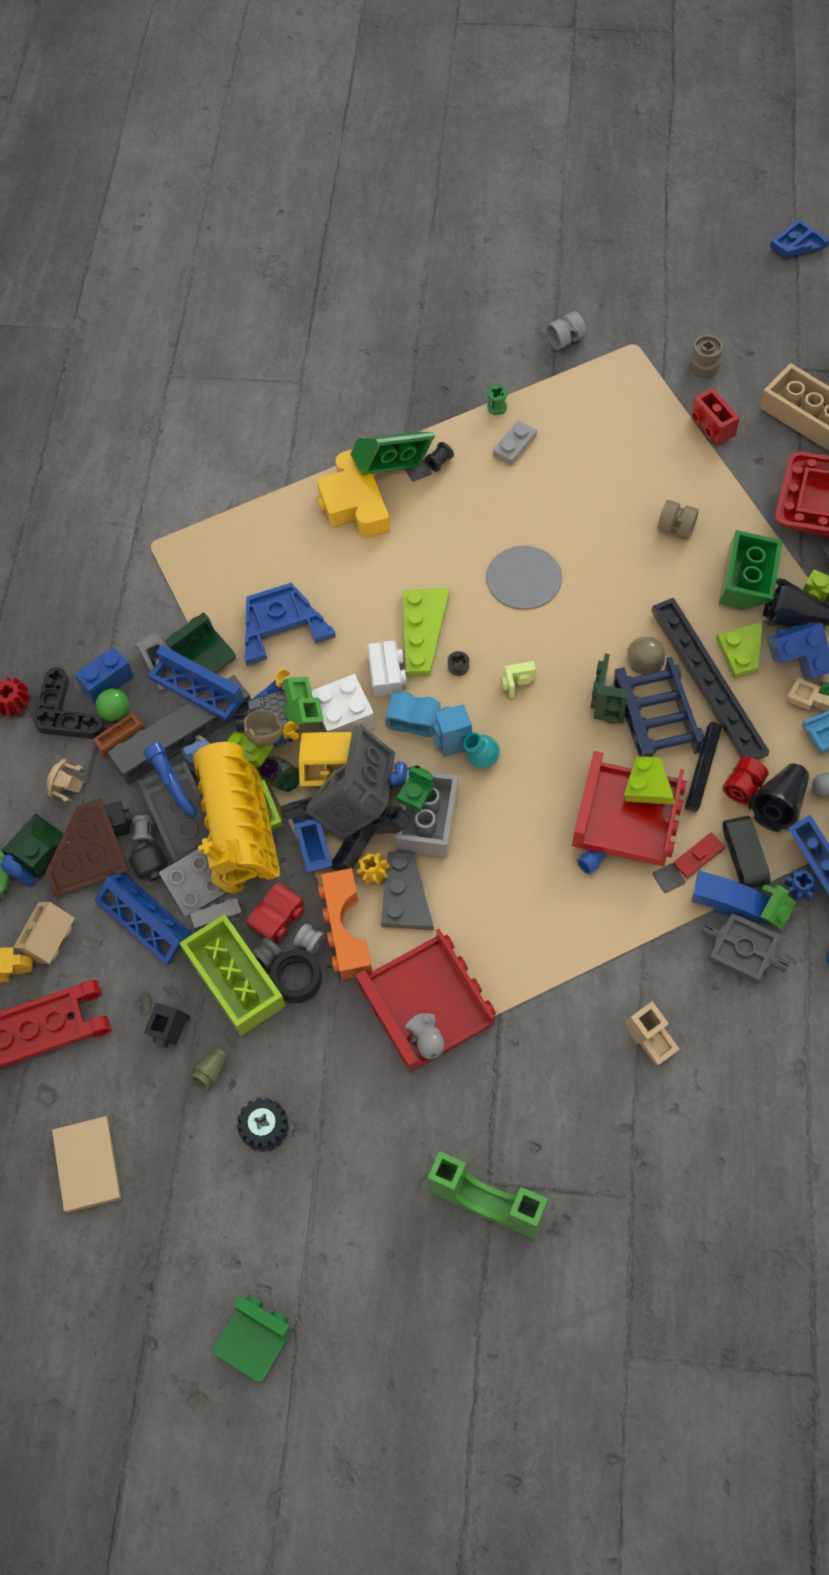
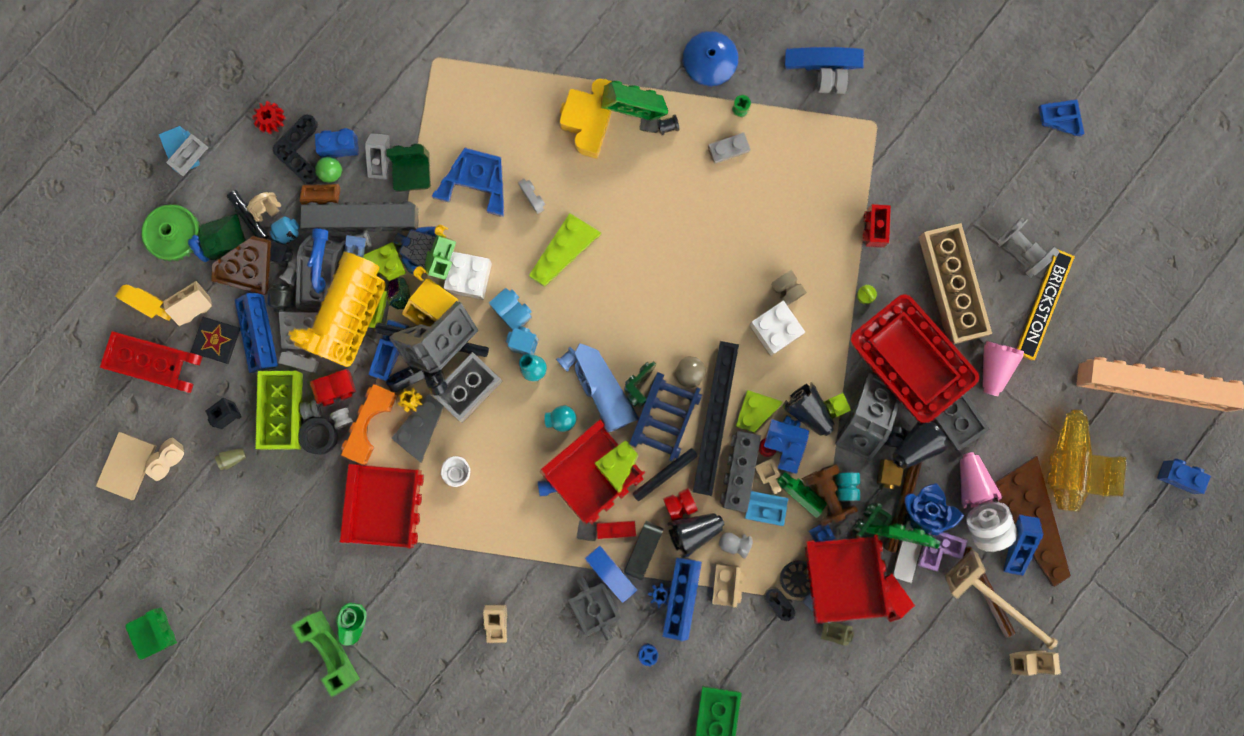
camera: 30 degrees right, 20 degrees up
(41, 802) = (241, 209): none -> black pin
(102, 955) = (215, 340): none -> black tile
(105, 787) = (284, 230): none -> dark azure head
(130, 1123) = (160, 462): none -> tan brick
(197, 675) = (388, 192): blue fence -> none
(262, 727) = (401, 260): dark tan hair -> none
(266, 1133) = (244, 510): black wheel -> none
(350, 598) = (528, 188): none -> light grey plate
(385, 668) = (516, 264): white brick -> none
(400, 774) = (467, 350): blue arm -> none
(416, 789) = (465, 372): green bracket -> none
(426, 1035) = (364, 533): light grey animal -> none
(432, 384) = (710, 69): none -> blue dish
(457, 657) = (569, 287): black bush -> none
(479, 907) = (455, 471): none -> white hair
(485, 1148) = (350, 623): none -> green piece
(512, 721) = (567, 359): none -> medium blue bush
(517, 674) = (598, 330): yellowish green bracket -> none
(524, 577) = (658, 256): flat silver sticker -> none
(534, 322) = (824, 57): none -> blue slope
(551, 781) = (561, 418): none -> teal piece
(560, 721) = (602, 386): none -> medium blue panel
(698, 560) = (777, 328): none -> white brick
(706, 356) = (912, 172): dark tan wheel -> none
(750, 570) = (803, 362): green slope -> none
(755, 483) = (866, 294): none -> lime tile
(778, 711) = (741, 471): none -> dark grey brick
(778, 907) = (634, 600): bright green bracket -> none
(783, 673) = (764, 451): none -> red plate

